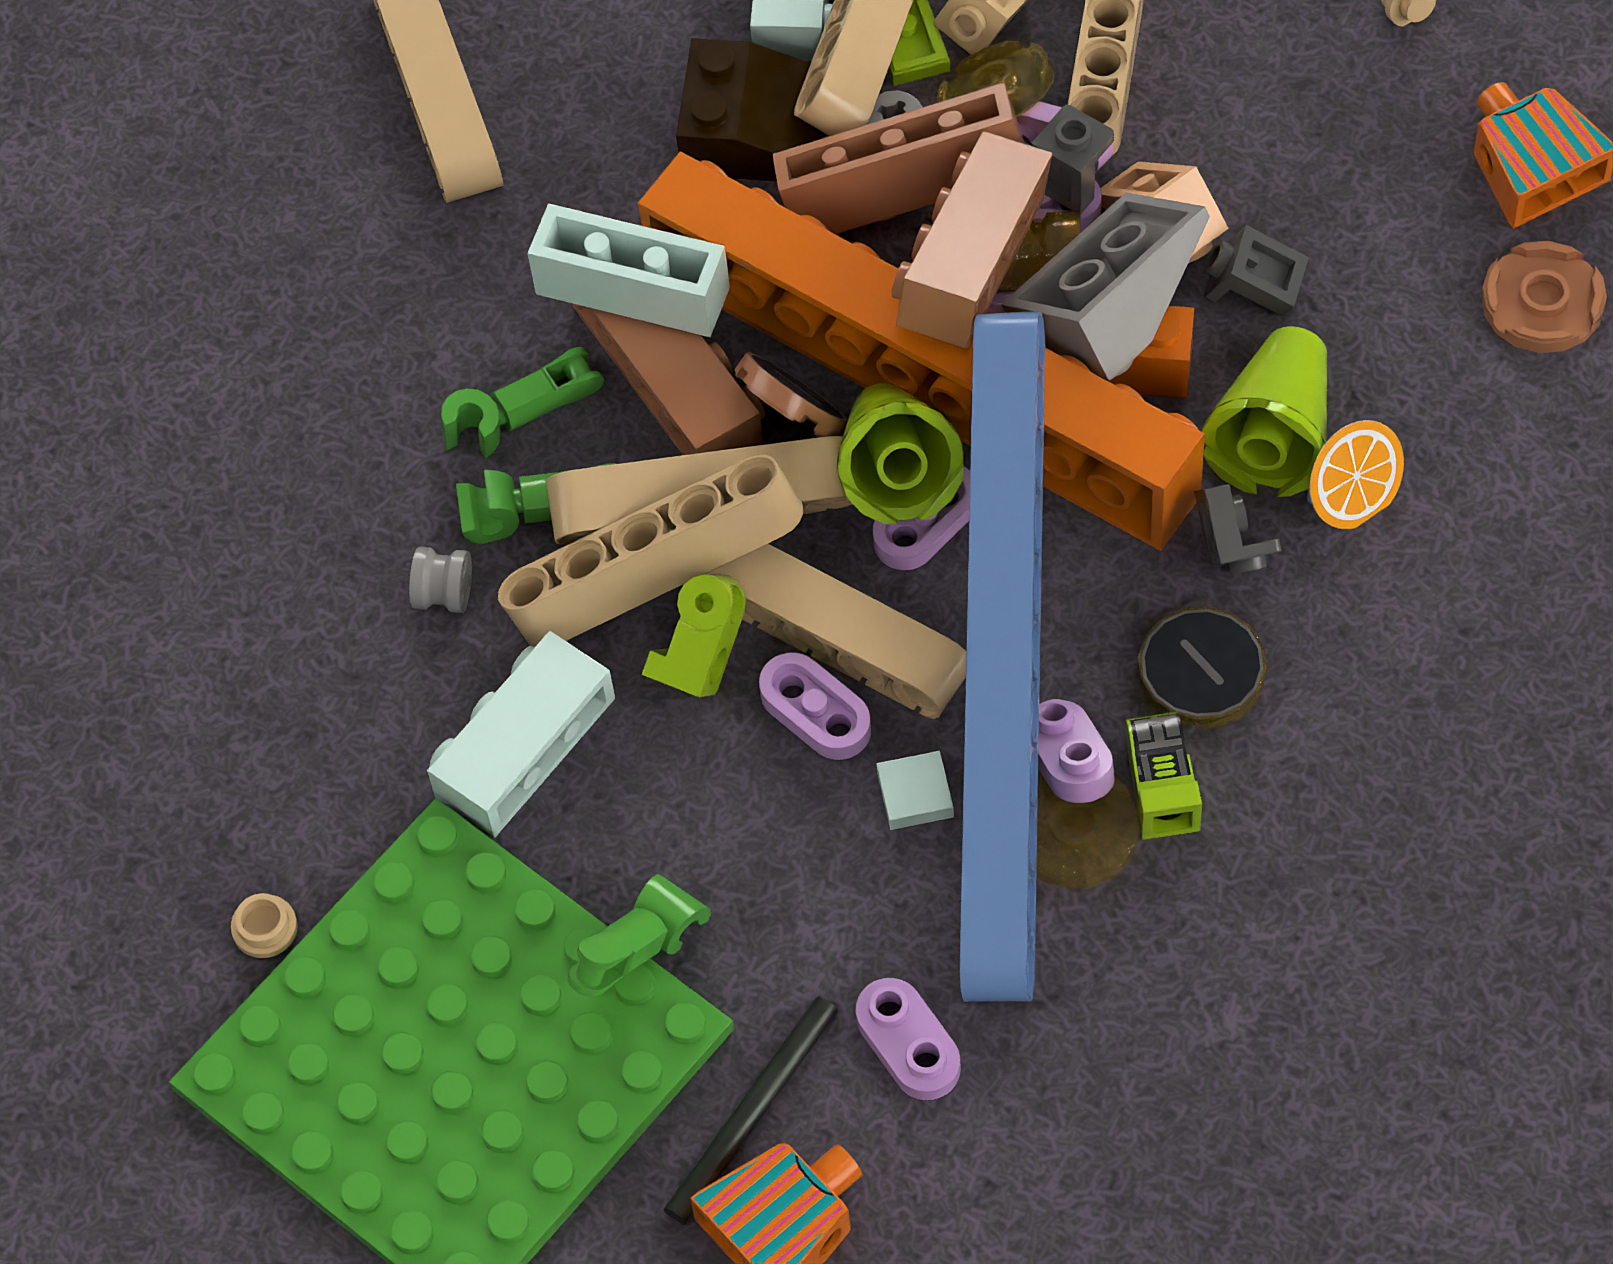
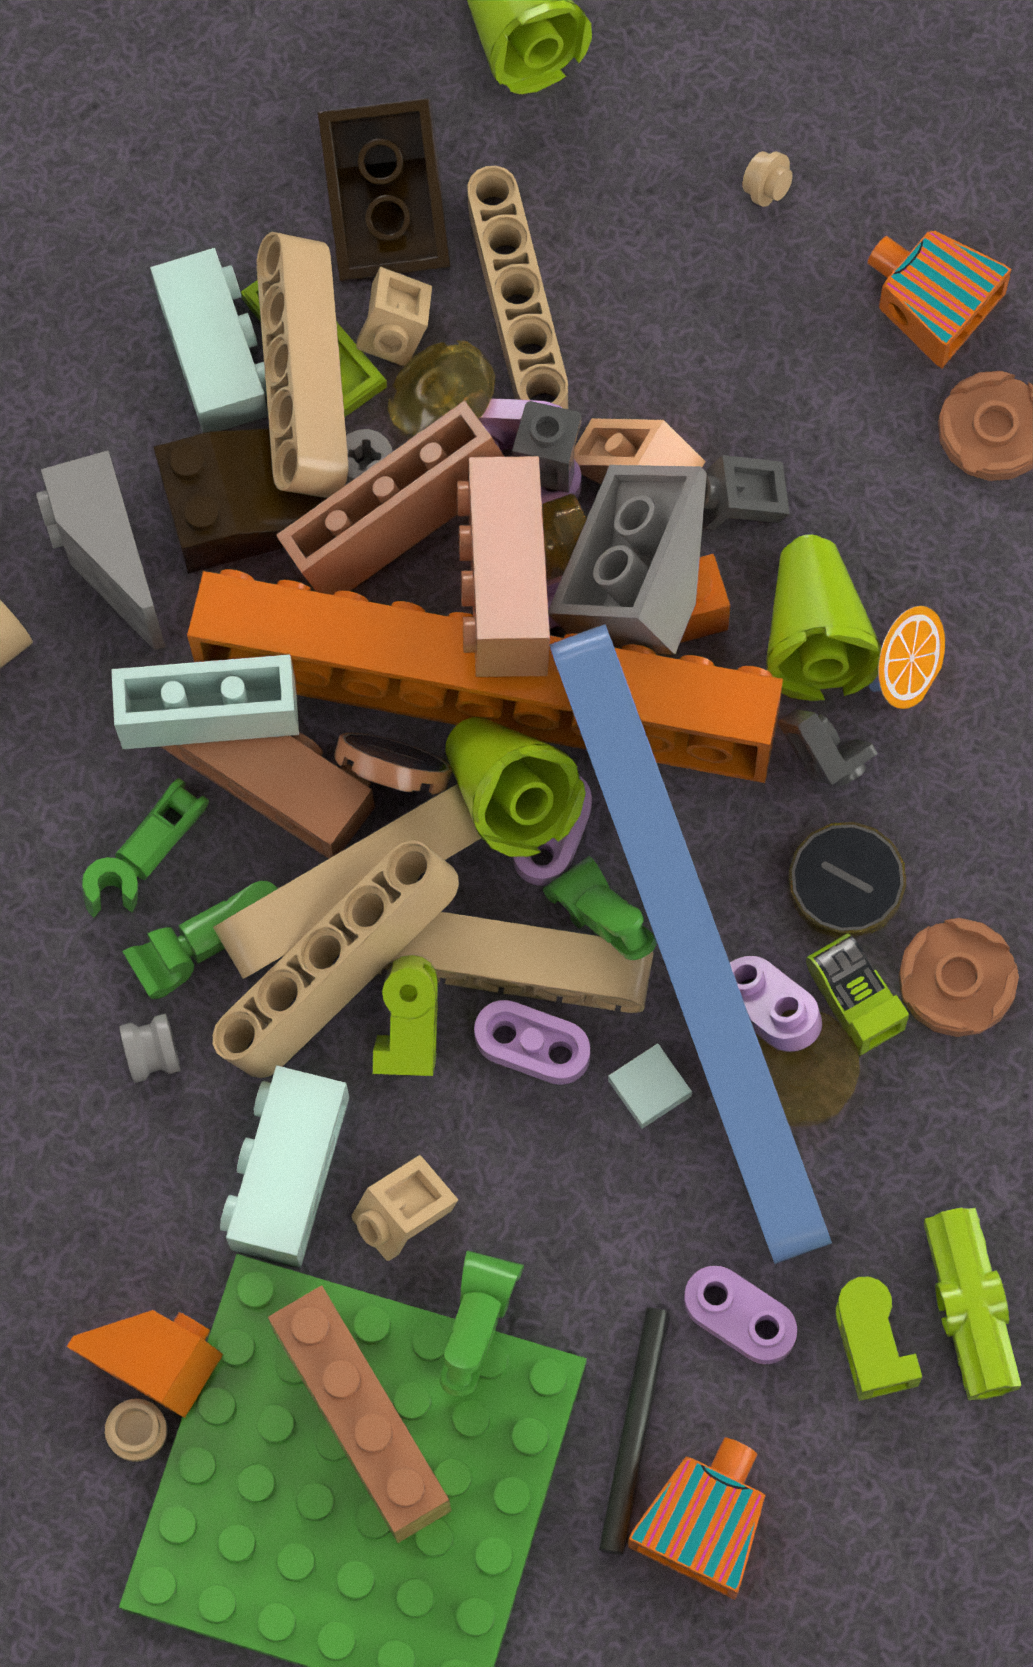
camera: 25 degrees left, 10 degrees up
(308, 856) = (153, 1356): none -> orange slope
(477, 979) = (360, 1414): none -> nougat brick
(608, 99) = (91, 522): none -> light grey slope
(616, 810) = (402, 1206): none -> tan bracket
(933, 598) = (594, 904): none -> bright green piece
(1028, 1092) = (869, 1341): none -> lime leg
(1148, 1112) = (973, 1303): none -> lime piece
(1274, 821) = (953, 996): none -> nougat tile

